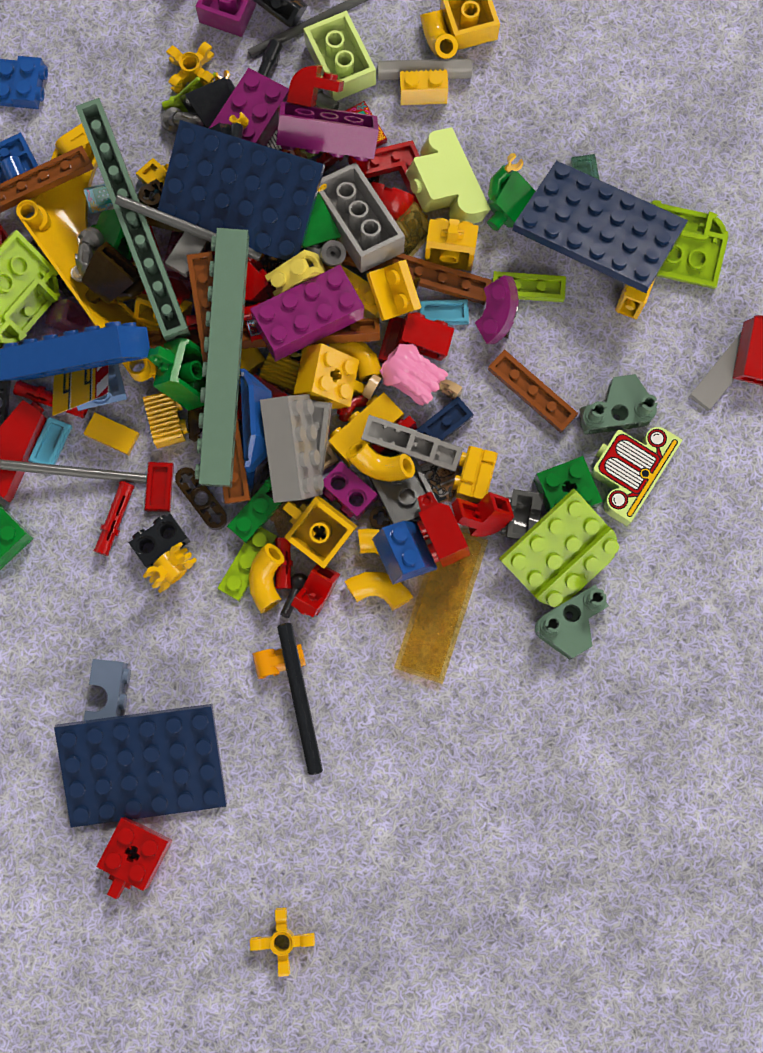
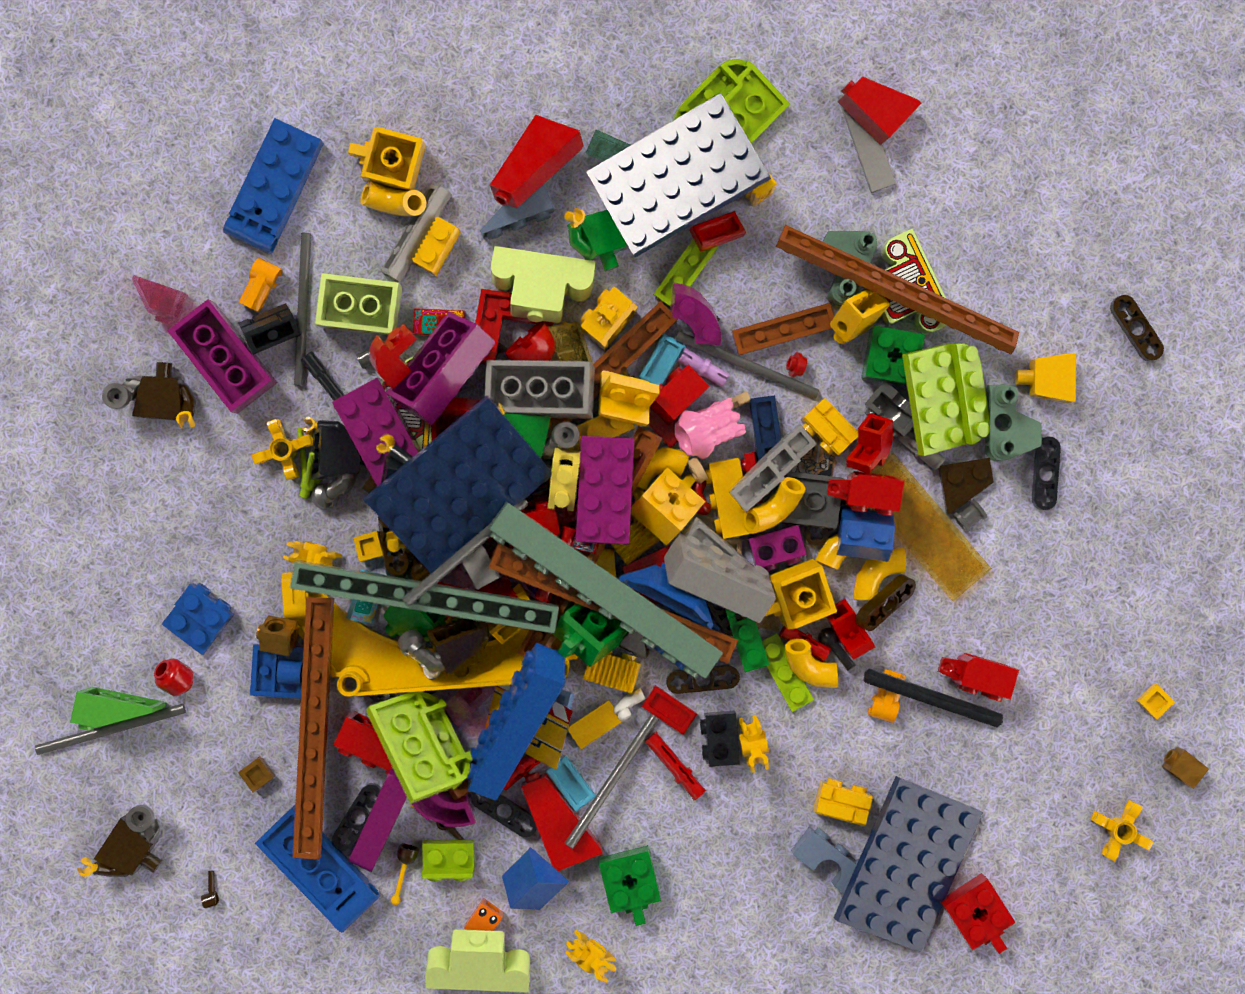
camera: 60 degrees left, 10 degrees up
(38, 144) = (277, 635): none -> pearl gold brick
(121, 131) = (311, 553): none -> yellow pin
(137, 446) = (628, 701): none -> white arm
(164, 676) = (843, 802): none -> yellow brick
(344, 724) = (980, 674): none -> red hinge
(365, 616) = (875, 612): none -> dark brown beam
(373, 963) = (1184, 767): none -> pearl gold brick
(415, 901) = (1155, 701): none -> yellow plate
(460, 346) = (703, 367): none -> lavender pin
(475, 637) = (970, 515): none -> dark grey bush
(485, 381) = (749, 365): none -> dark grey piece
(495, 132) = (536, 207): none -> sand blue slope
(502, 616) = (964, 481): none -> dark brown wing
(504, 575) = (933, 460): none -> light grey axle
(510, 418) = (796, 364): none -> red plate
(538, 115) = (534, 160): none -> red slope
(566, 667) = (1052, 493): none -> black beam
(576, 291) = (717, 231): none -> red tile
(583, 437) = (850, 322): none -> yellow torso
(625, 457) = (898, 289): none -> dark orange plate
(635, 633) = (1050, 378): none -> yellow torso
(725, 663) = (1147, 328): none -> dark brown beam

